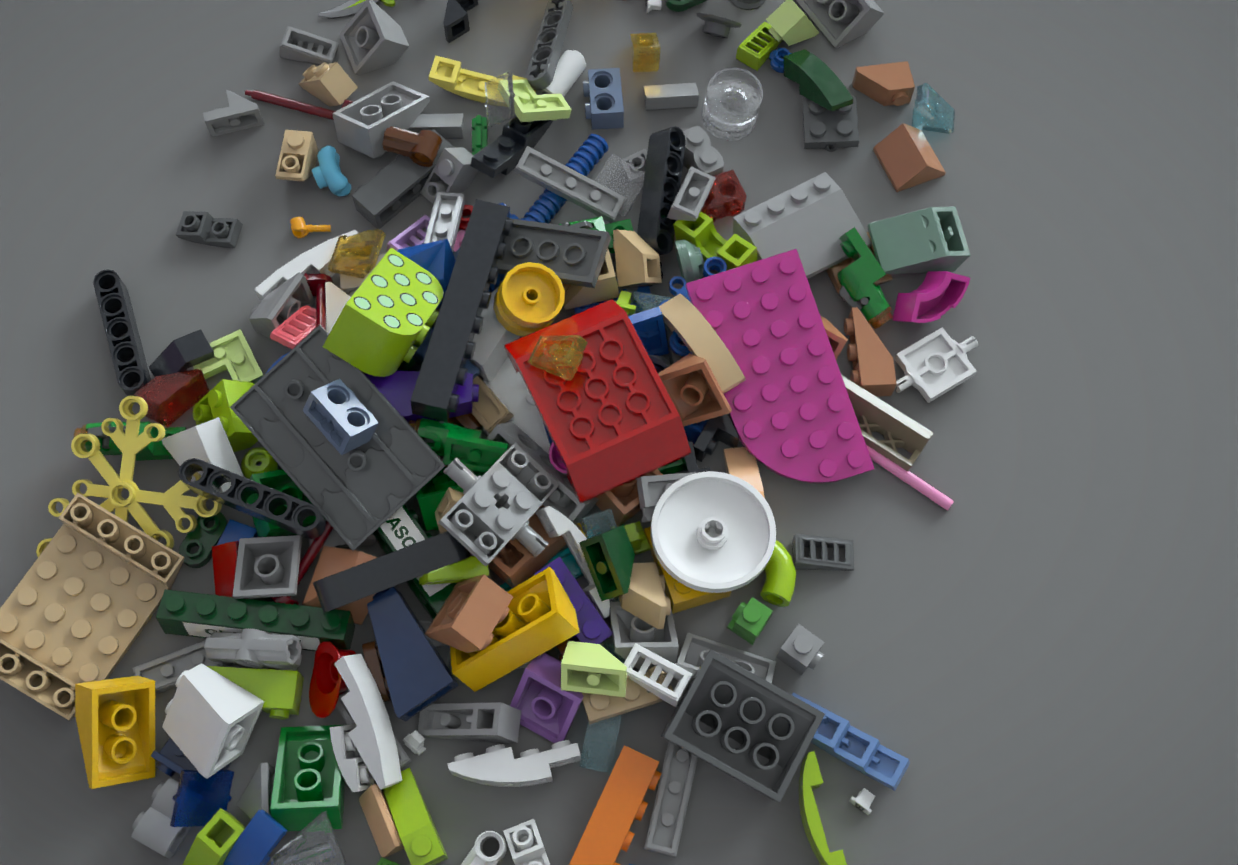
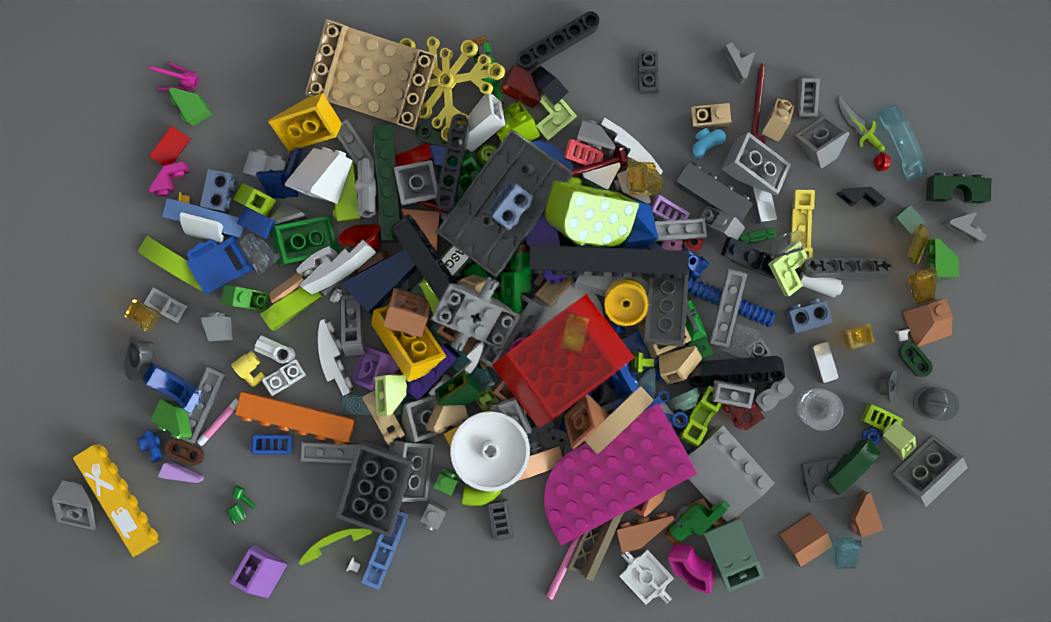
camera: 75 degrees right, 20 degrees up
(301, 230) = (661, 132): light orange hand -> none
(420, 146) = (733, 199): reddish brown piece -> none
(672, 670) = (394, 449): white slope -> none

